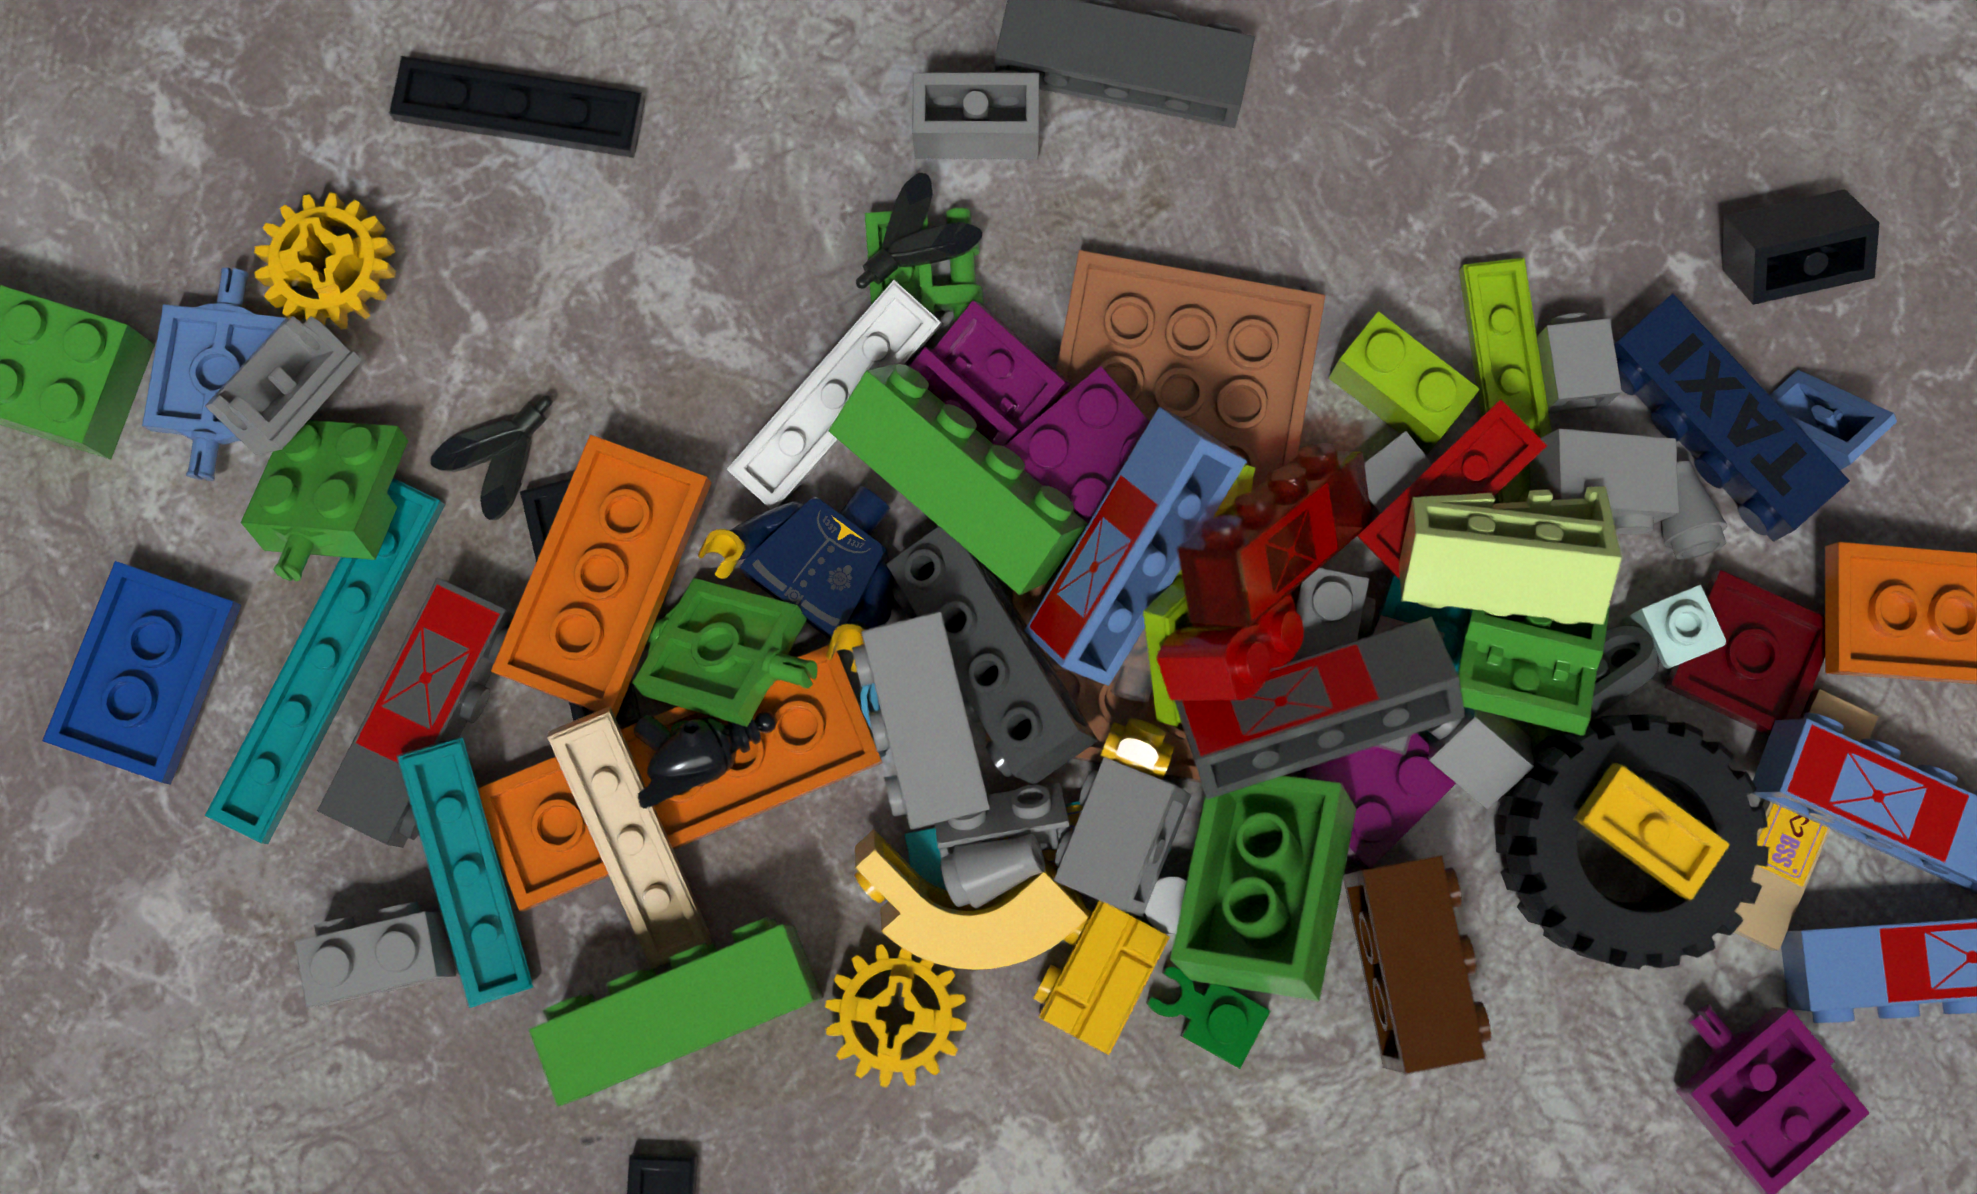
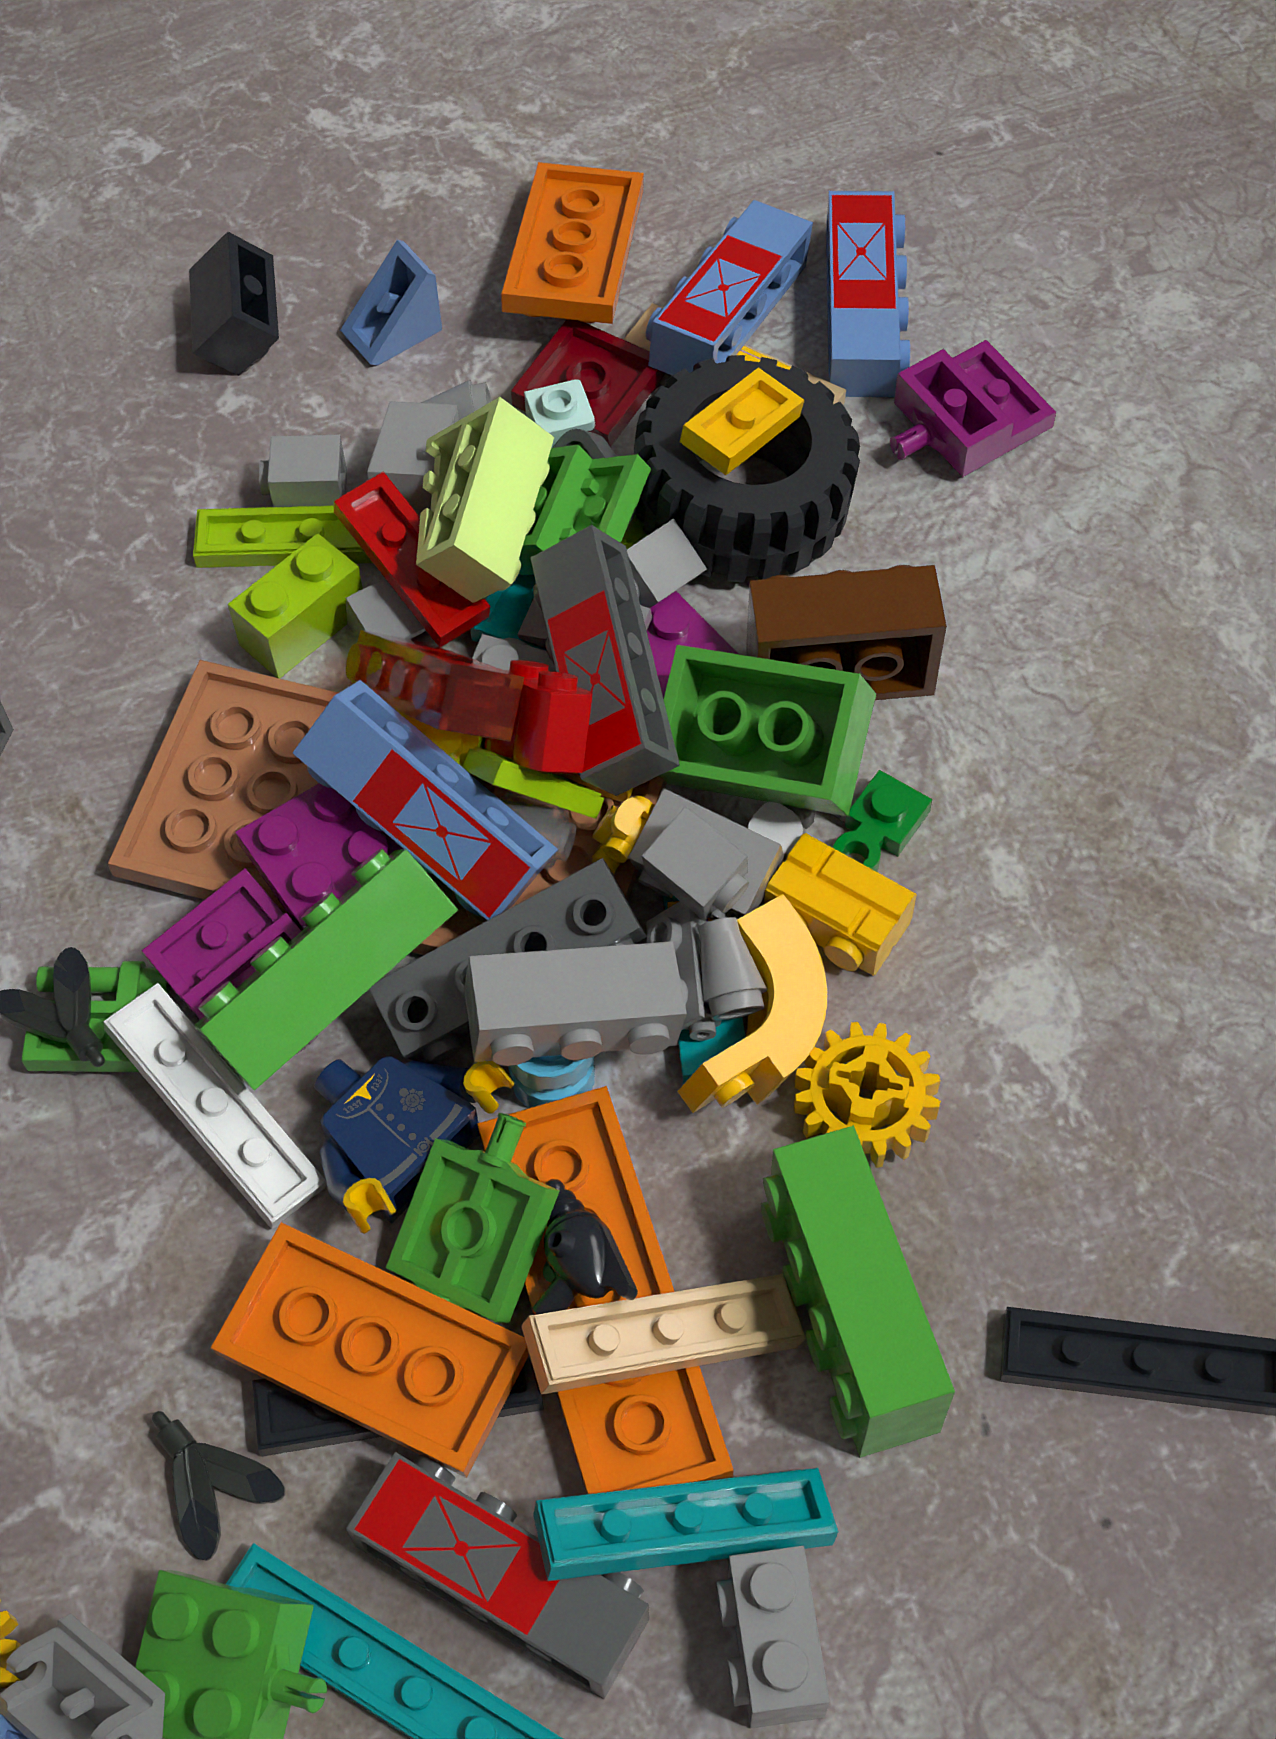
camera: 85 degrees left, 20 degrees down
(1081, 827) = (697, 865): none -> light grey brick
(1725, 421) = (396, 361): dark blue brick -> none

